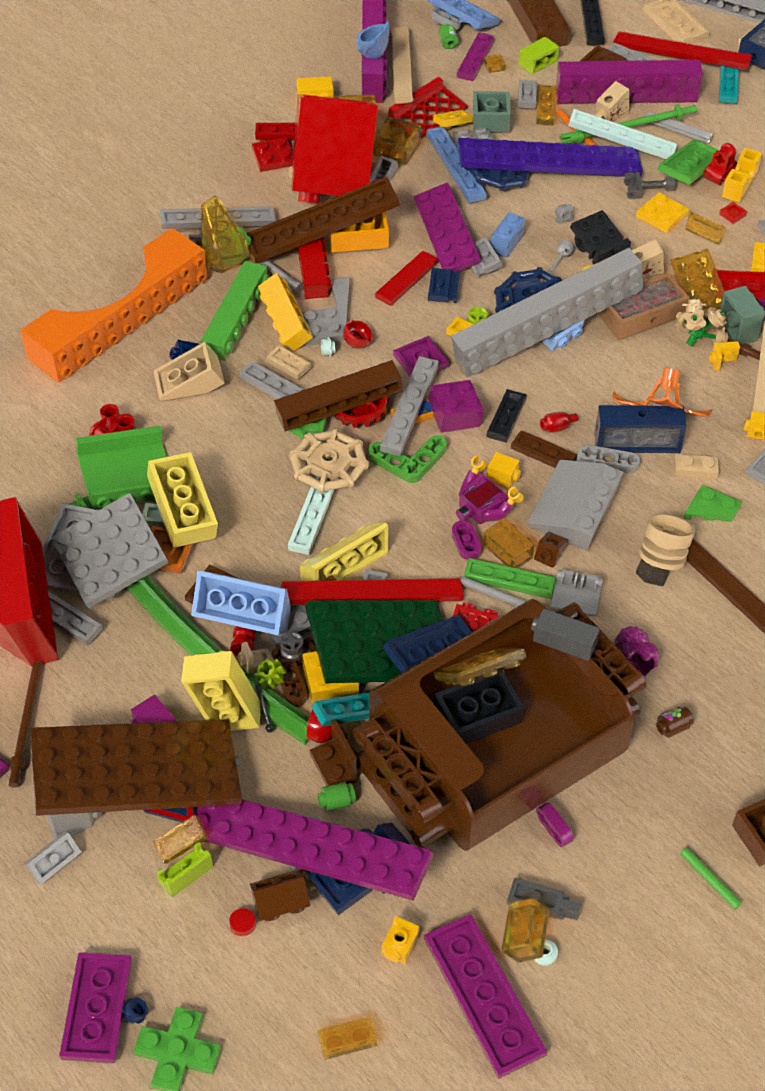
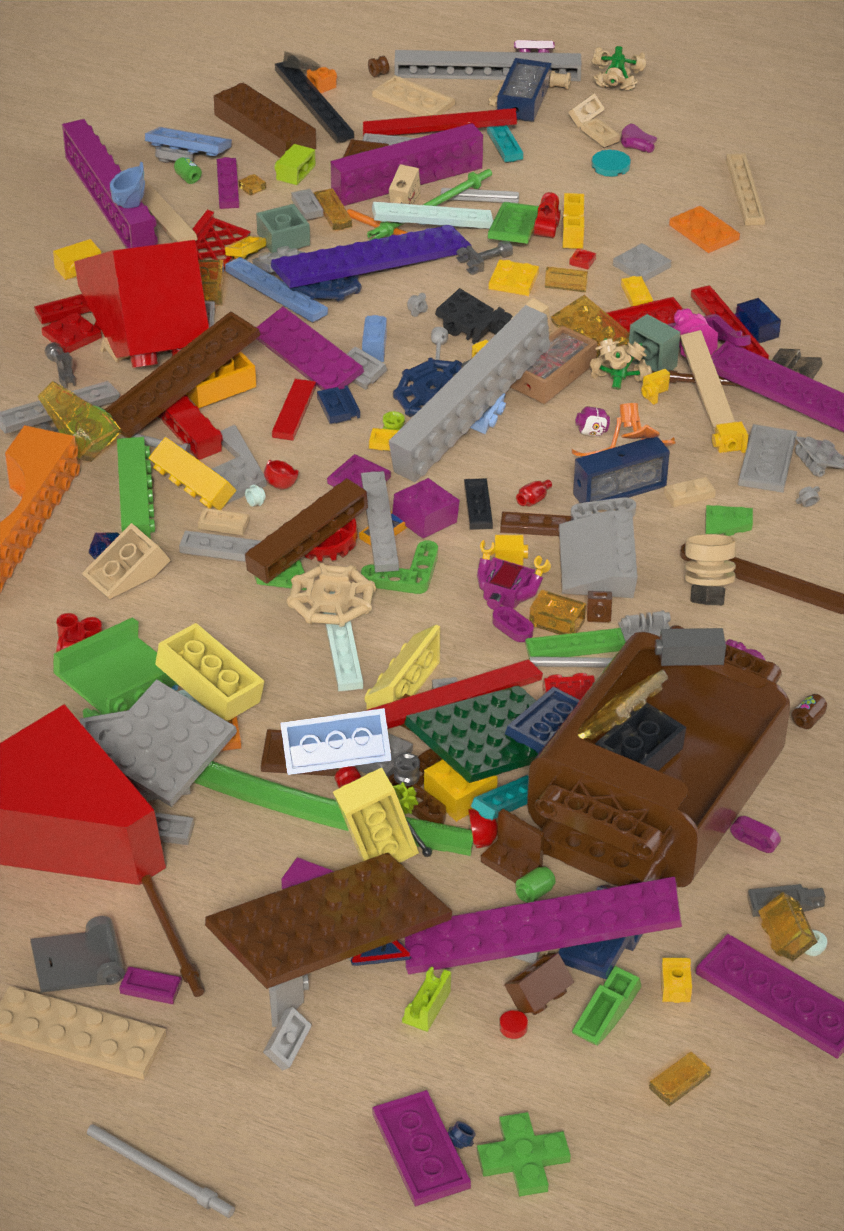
camera: 25 degrees left, 10 degrees down
(180, 839) = (407, 975): clear yellow tile -> none
(244, 179) = (64, 363): none -> flat silver bar
(326, 940) = (607, 1006): none -> bright green slope
(647, 370) = (592, 421): none -> head

